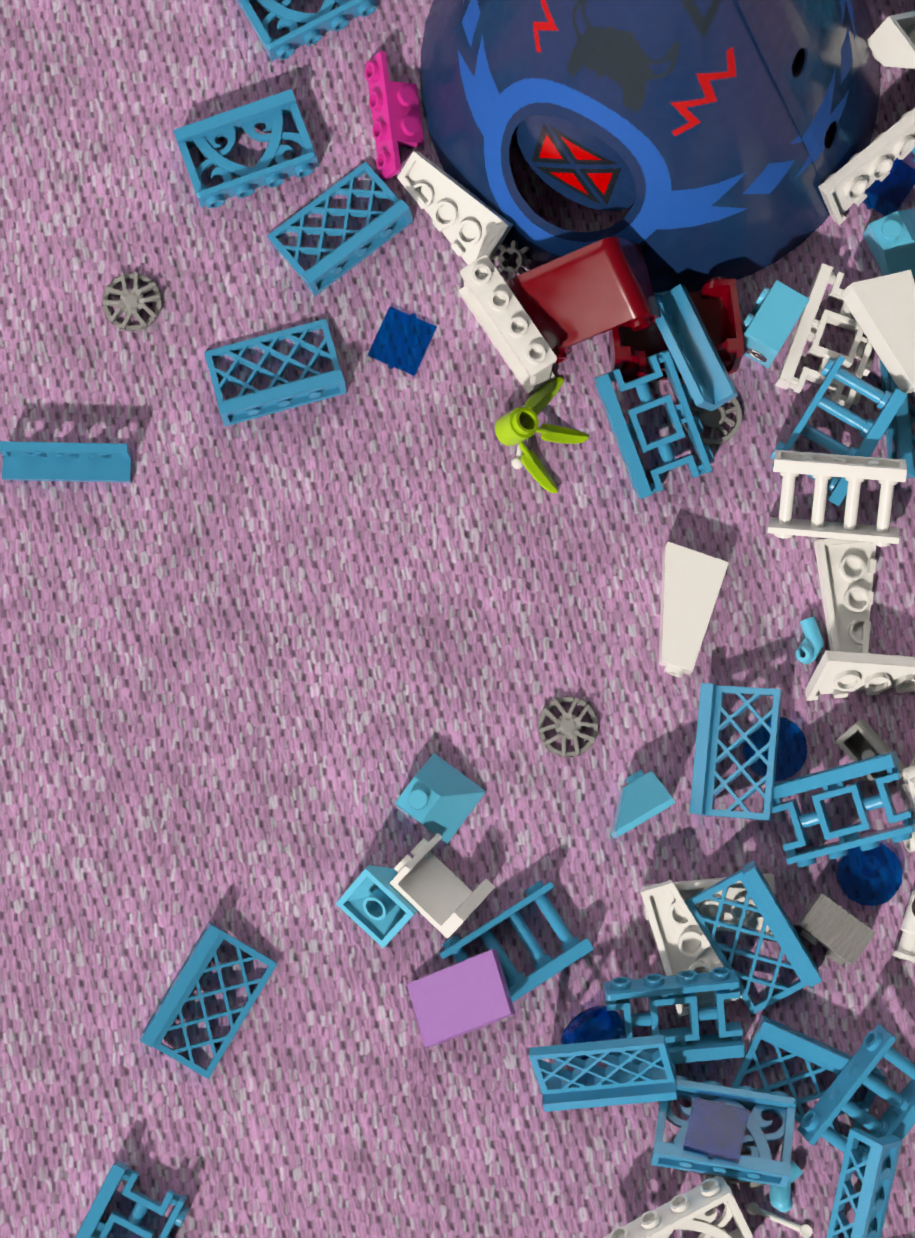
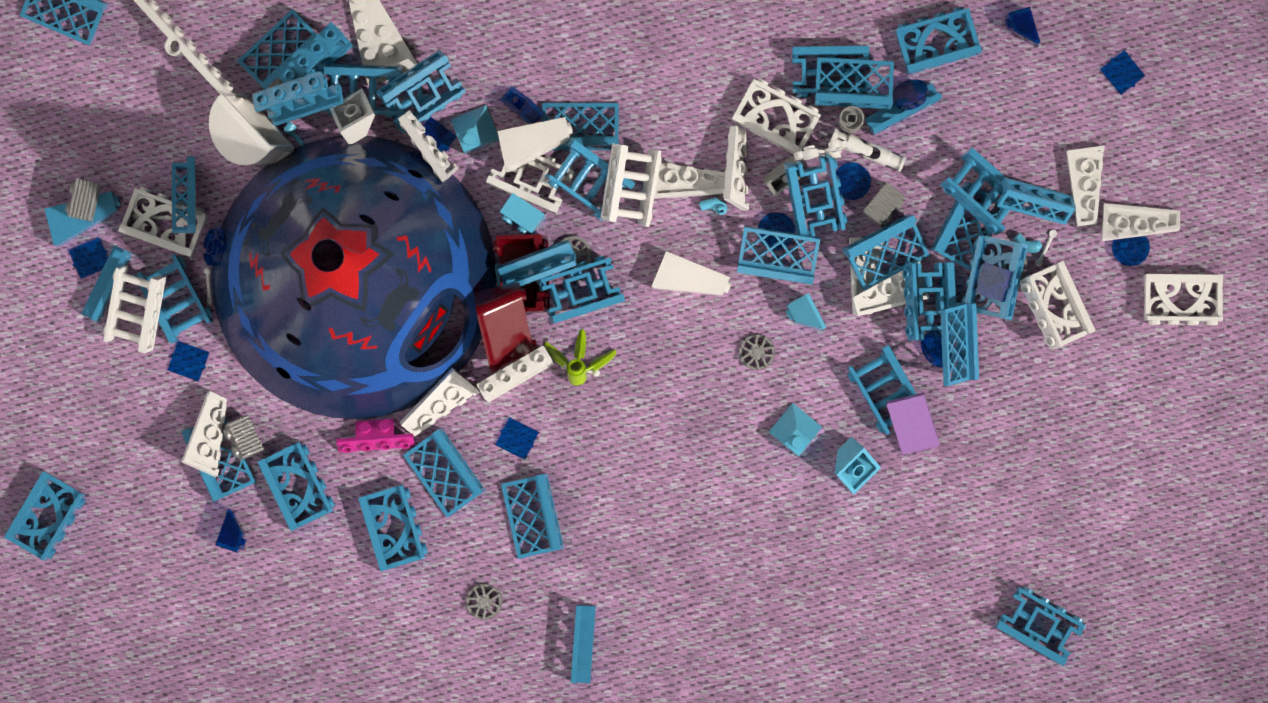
camera: 80 degrees left, 5 degrees up
(180, 992) = (896, 584): dark azure fence -> none
(435, 889) = (850, 433): white panel -> none
(503, 259) = (477, 369): light grey gear -> none

